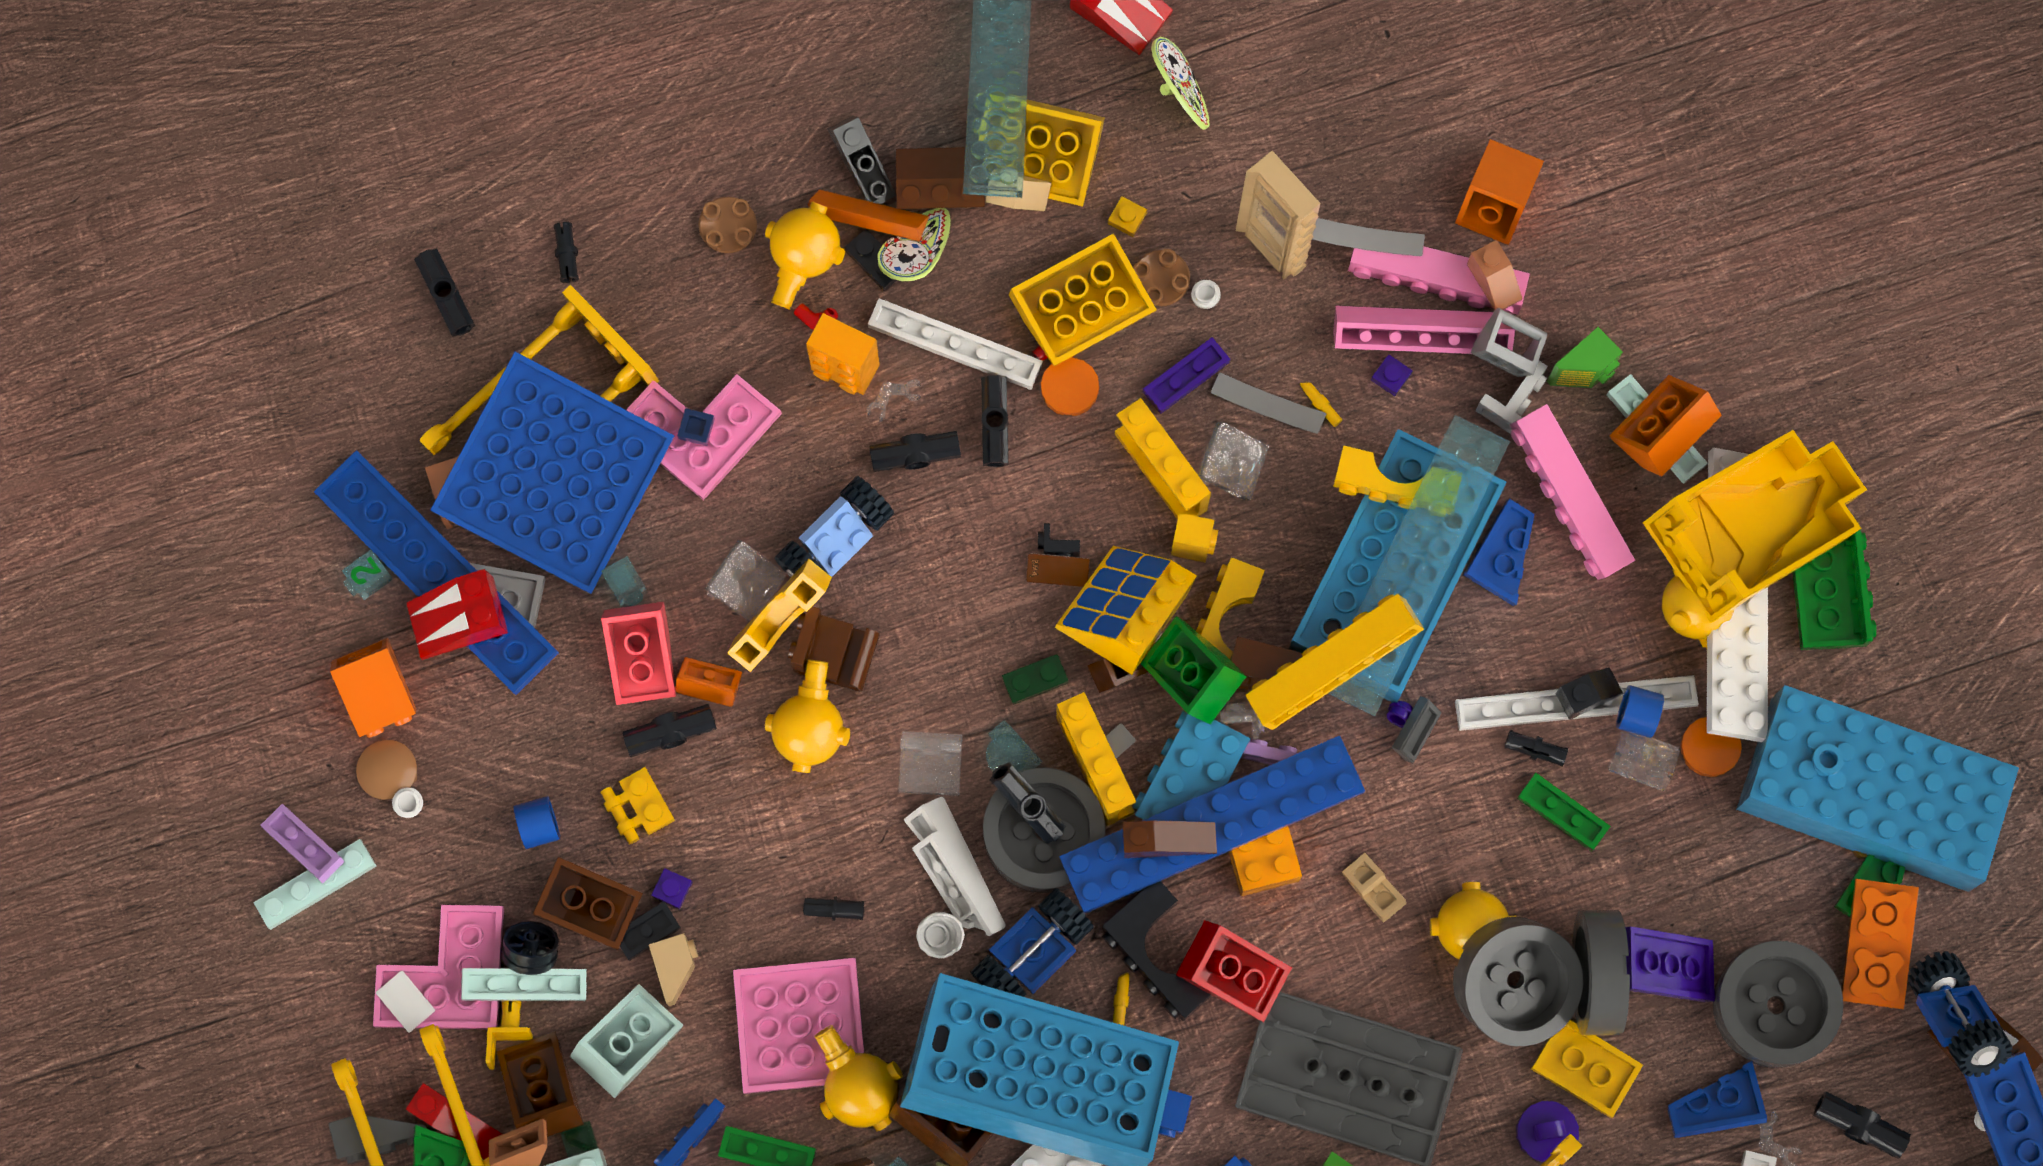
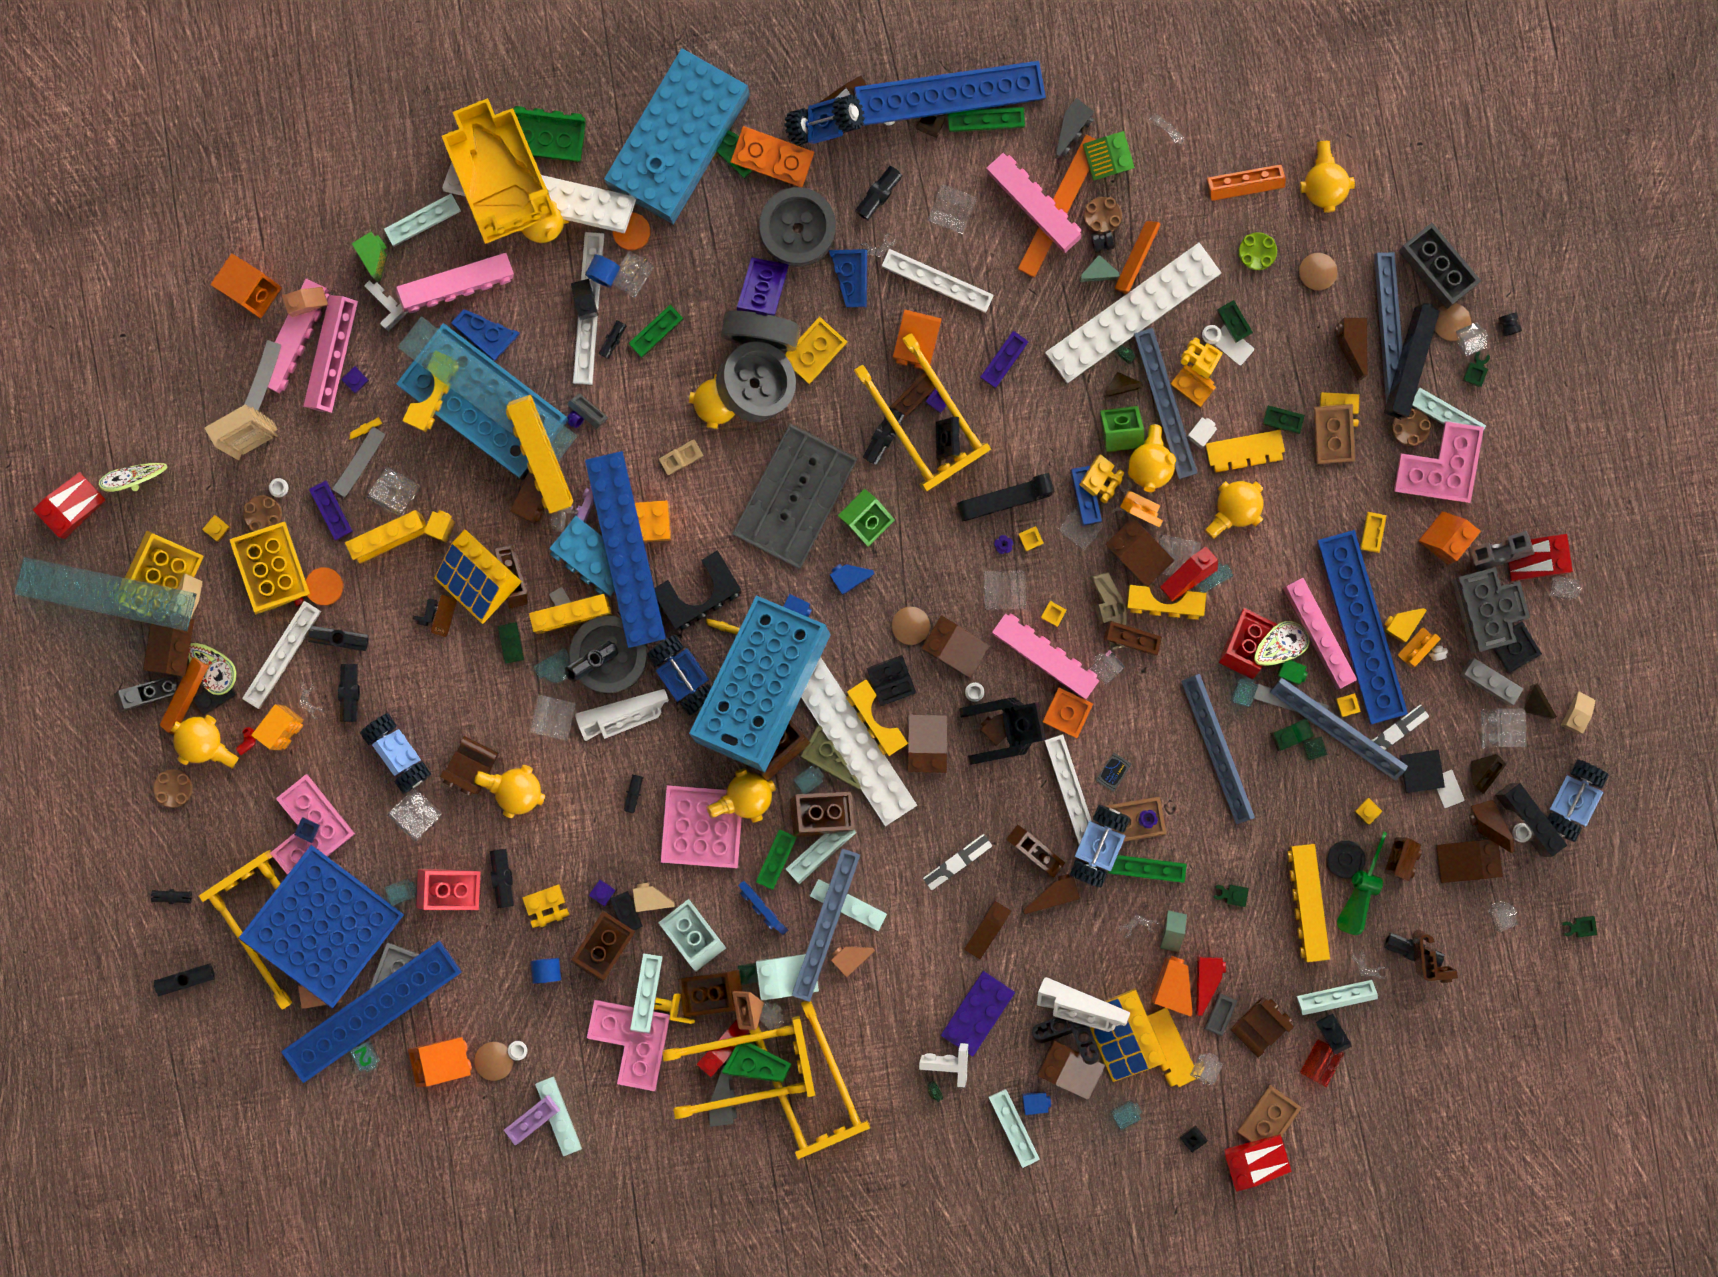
camera: 85 degrees left, 10 degrees up
(405, 1001) = (643, 1069): white sticker -> none
(457, 614) = (403, 1001): red slope -> none
(532, 944) = (621, 985): black wheel -> none
(708, 681) = (474, 849): orange slope -> none
(775, 617) = (449, 808): yellow arch -> none
(940, 935) = (662, 730): white hair -> none
(1168, 838) = (630, 577): slope -> none
(1193, 671) = (527, 543): green slope -> none
(1234, 970) = (718, 553): red slope -> none
(1237, 587) = (475, 504): yellow arch -> none
(1517, 365) = (351, 317): light grey tile -> none
(1543, 1128) = (846, 383): dark purple tile -> none
(1666, 424) = (422, 214): orange slope -> none

